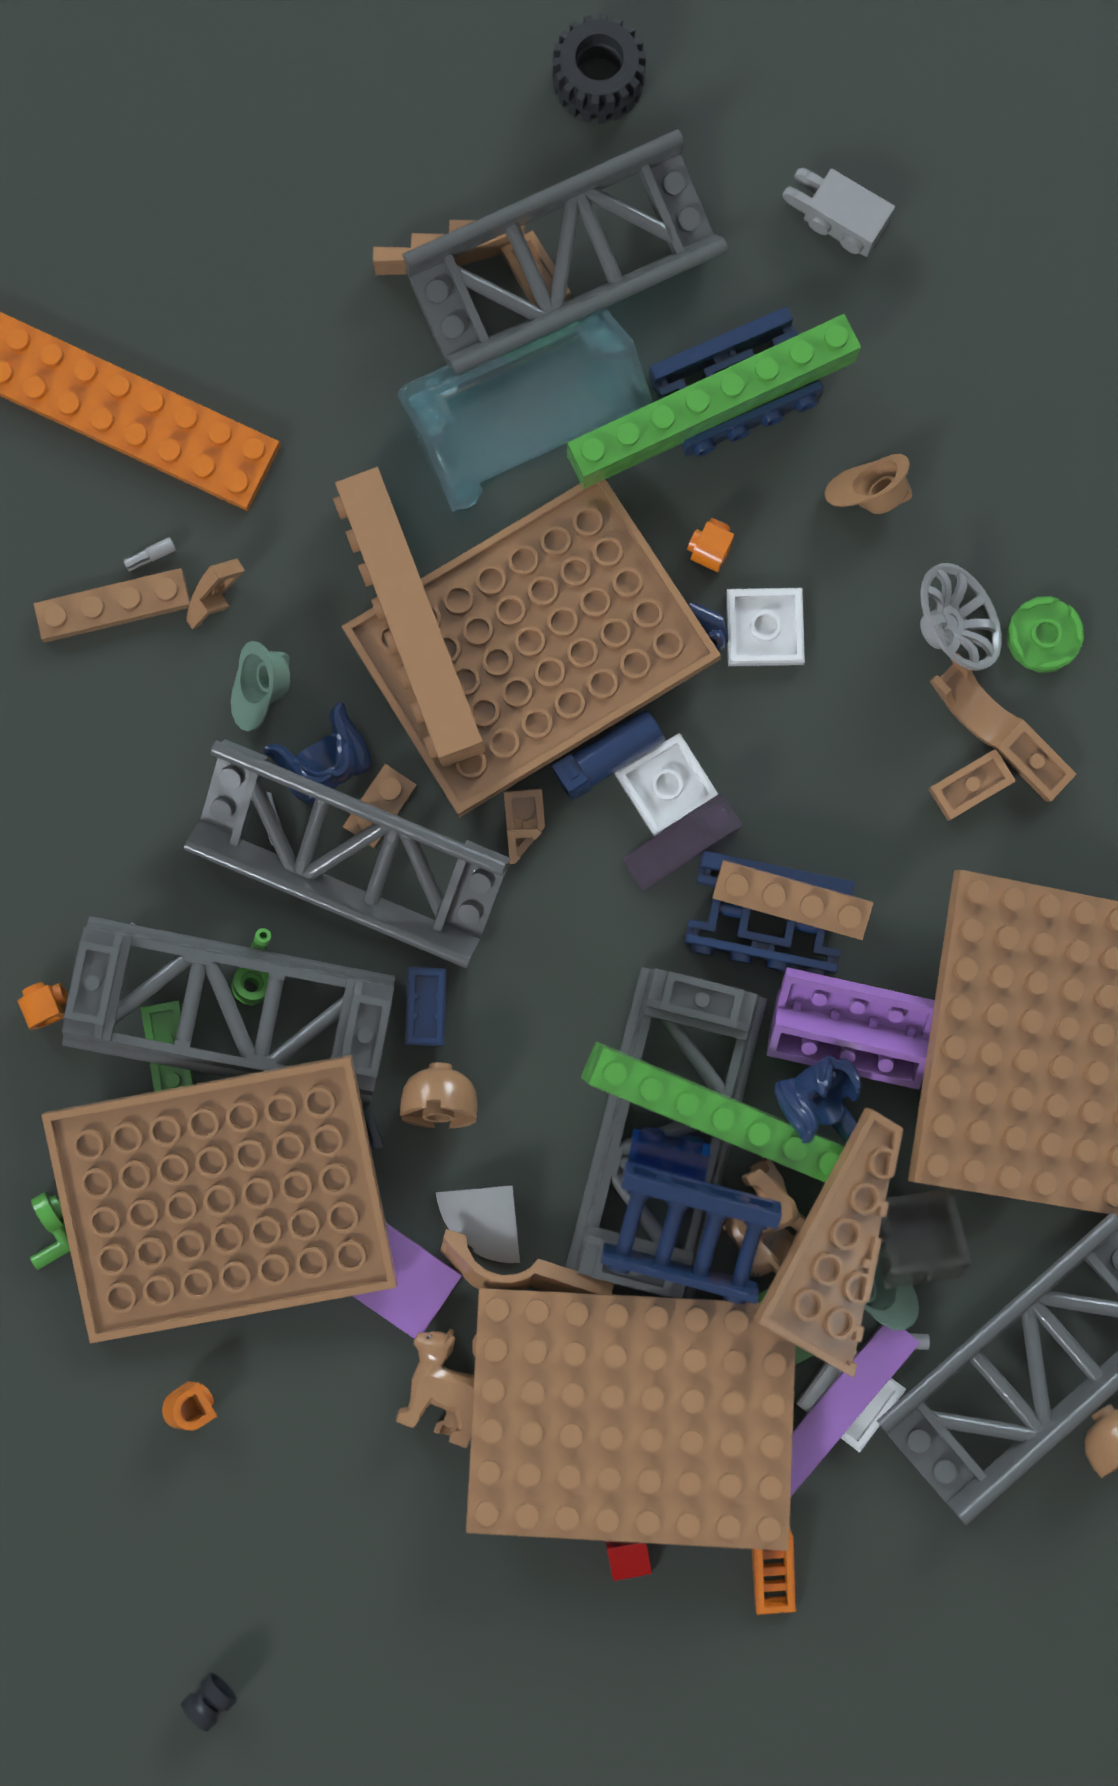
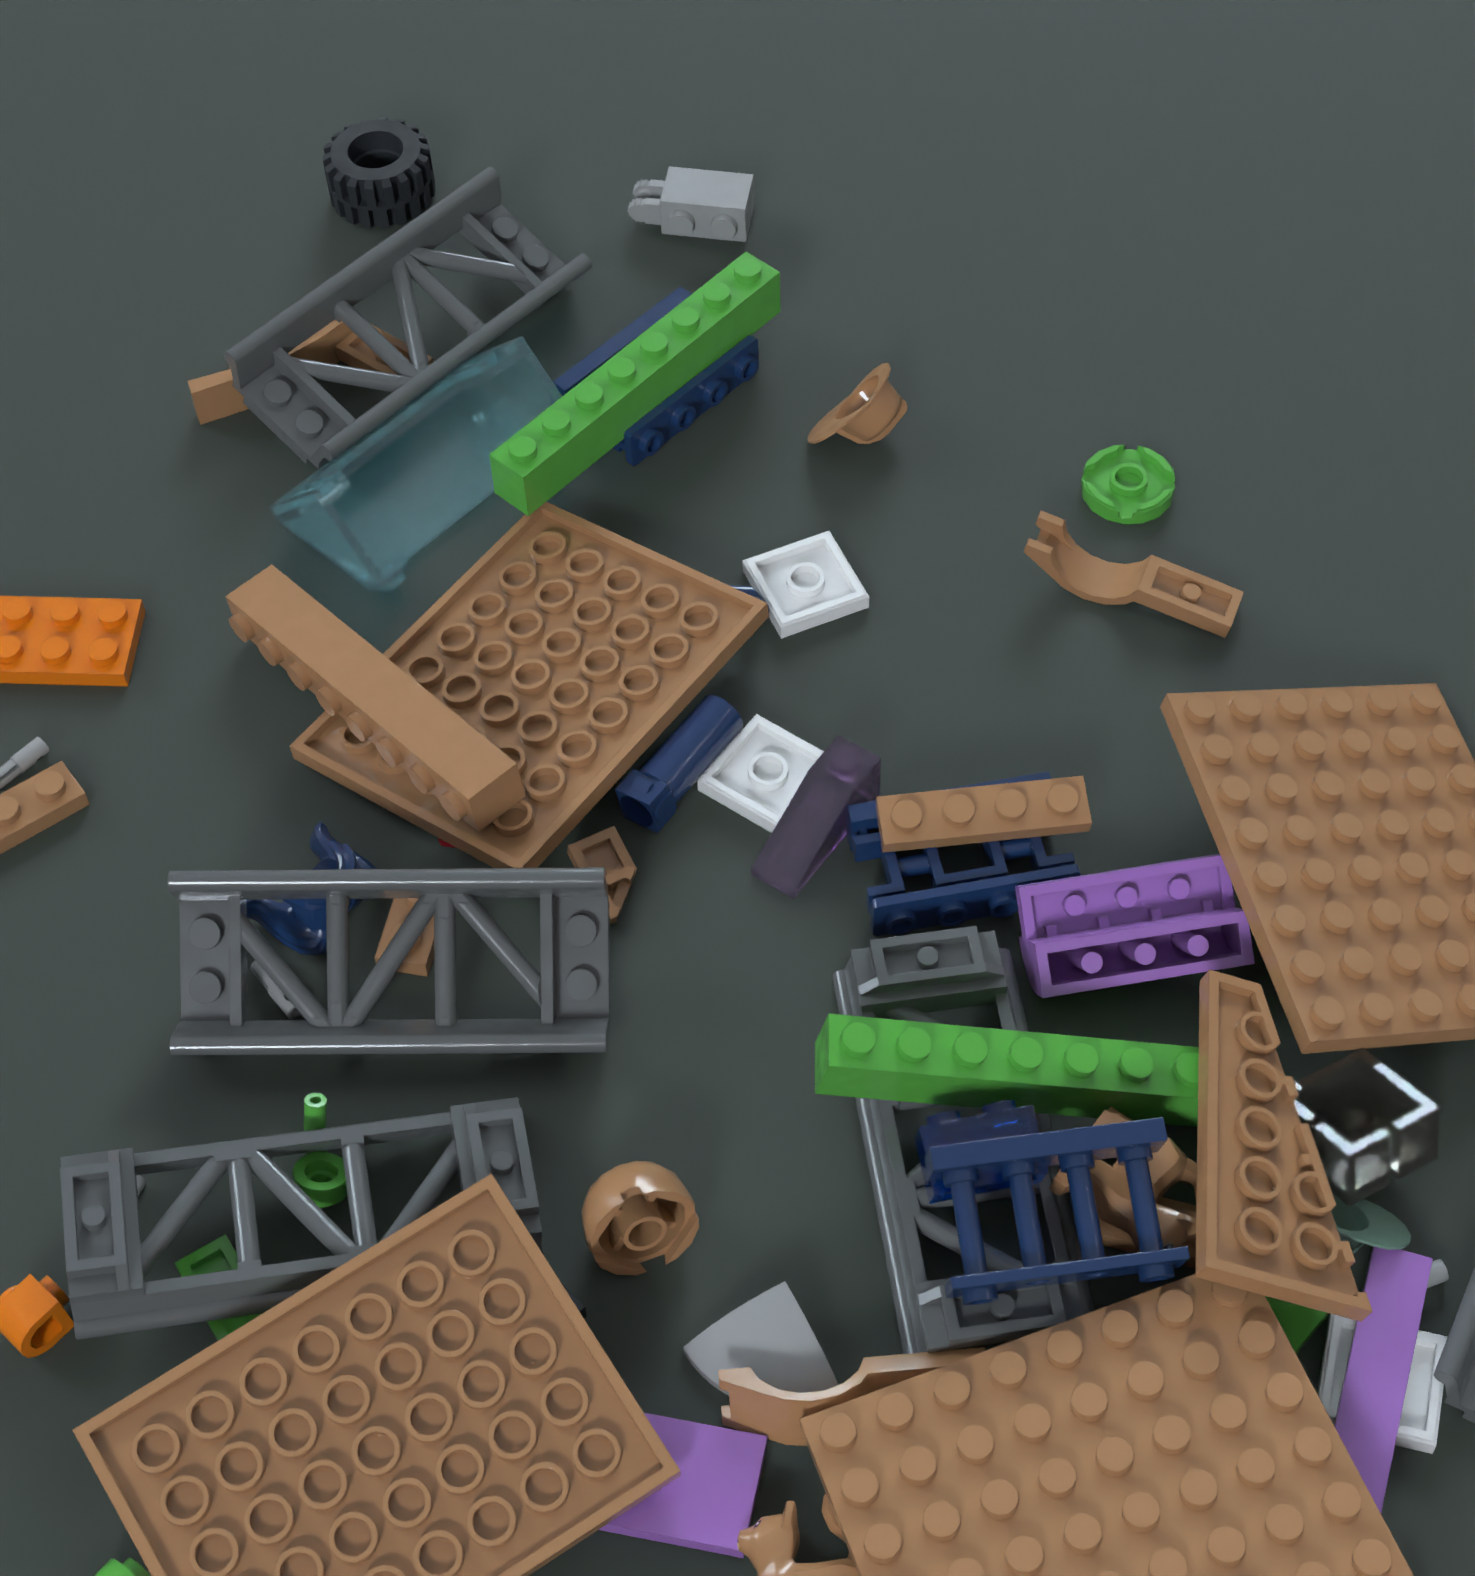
camera: 20 degrees left, 30 degrees down
(208, 593) = (109, 764): medium nougat slope -> none
(260, 680) = (205, 827): sand green piece -> none
(426, 1006) = (571, 1121): dark blue plate -> none
(711, 545) = (703, 523): orange plate -> none
(819, 1098) = (1135, 1003): dark blue hair -> none
(947, 624) = (1012, 503): light grey wheel -> none
(971, 785) = (1130, 643): medium nougat plate -> none

